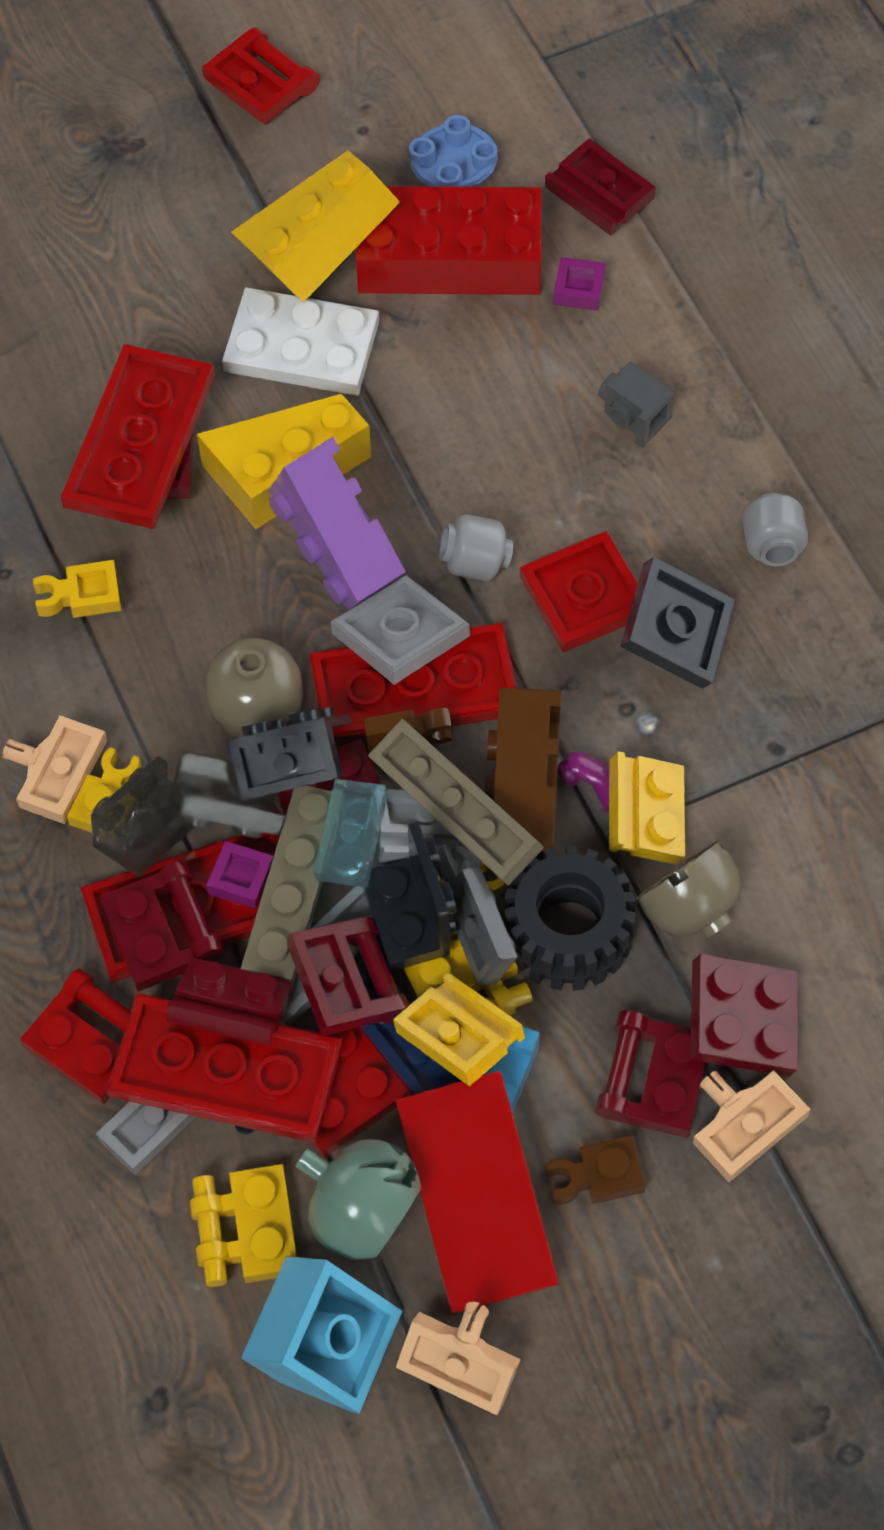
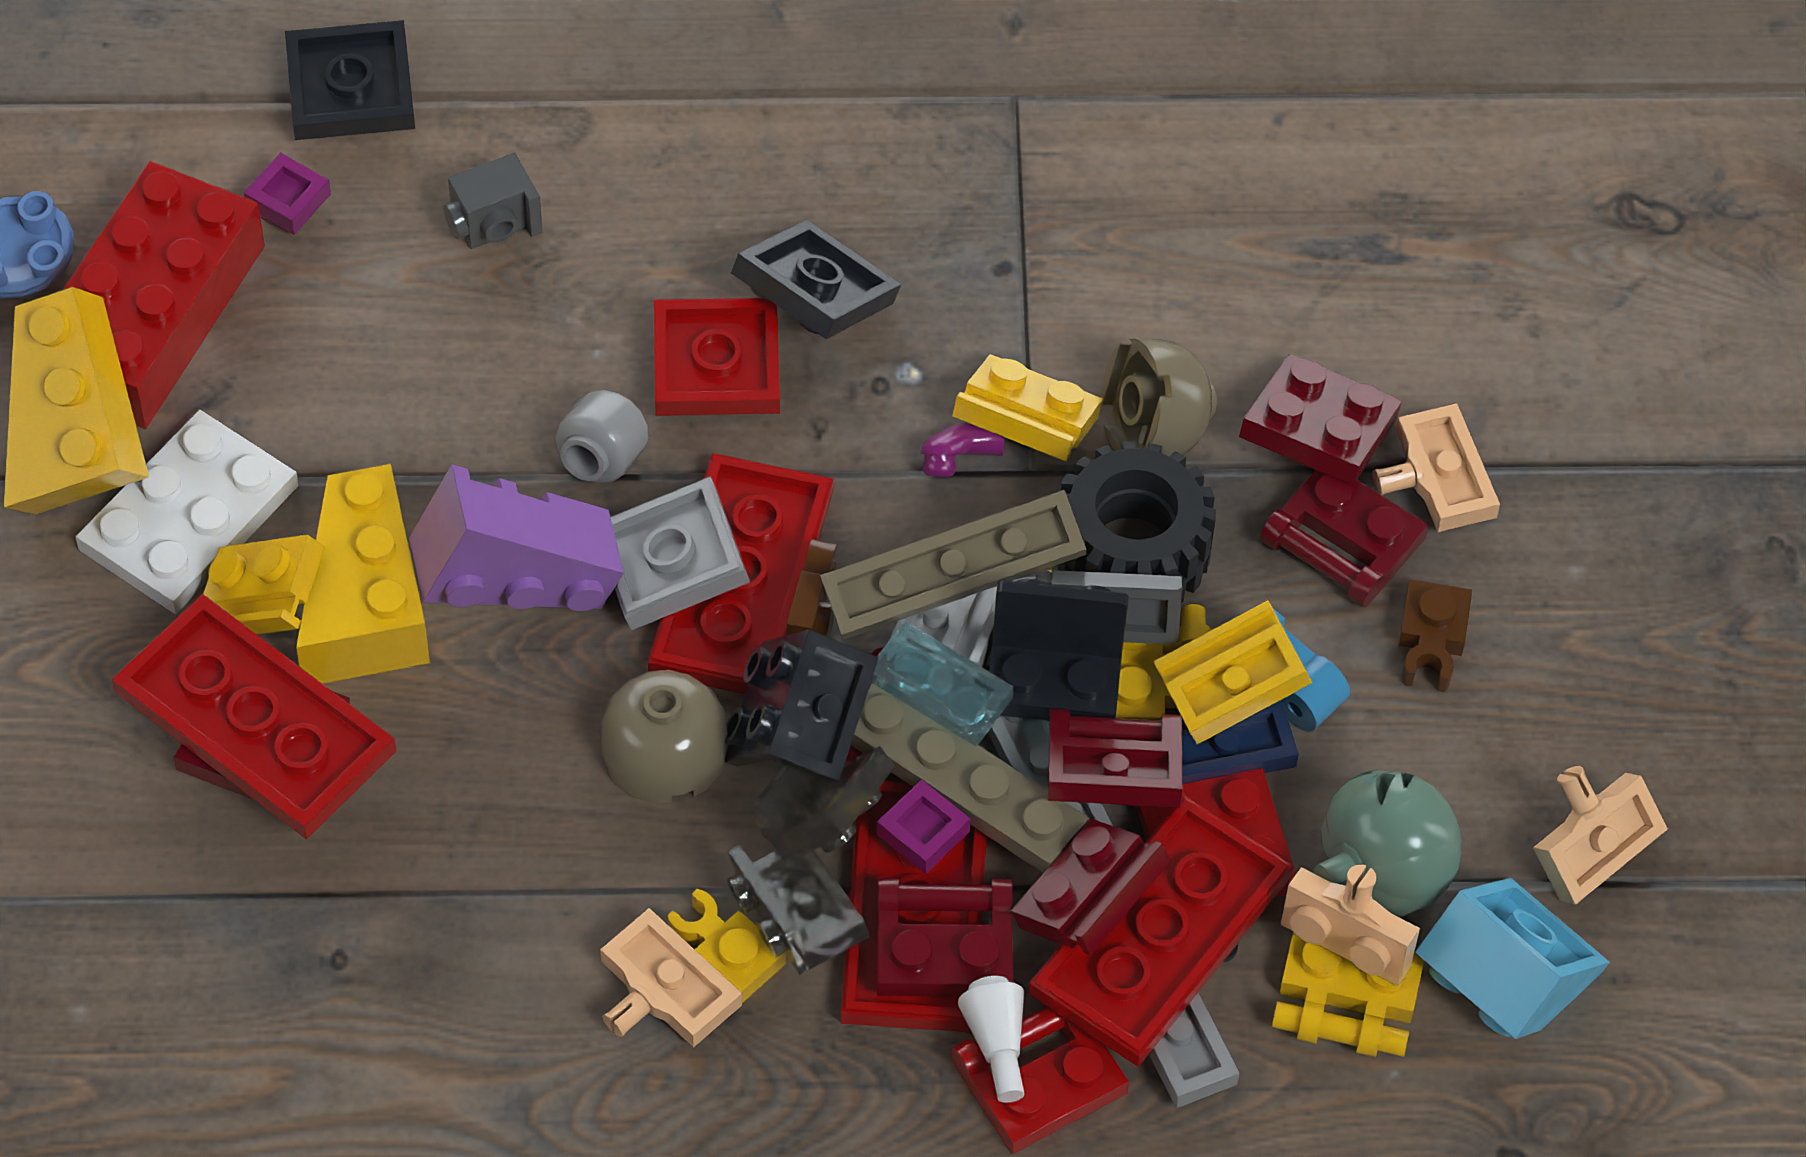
camera: 70 degrees left, 5 degrees down
(88, 590) = (426, 865): yellow plate -> none
(96, 984) = (995, 1018): none -> white cone
(247, 397) = (265, 581): none -> yellow plate
(277, 1174) = (1350, 922): none -> light nougat plate
(477, 1192) = (1467, 742): red tile -> none
(526, 760) = (916, 487): reddish brown wedge -> none
(600, 186) = (158, 117): dark red plate -> none
(695, 278) = (349, 80): none -> black plate
(775, 529) = (741, 142): light grey head -> none

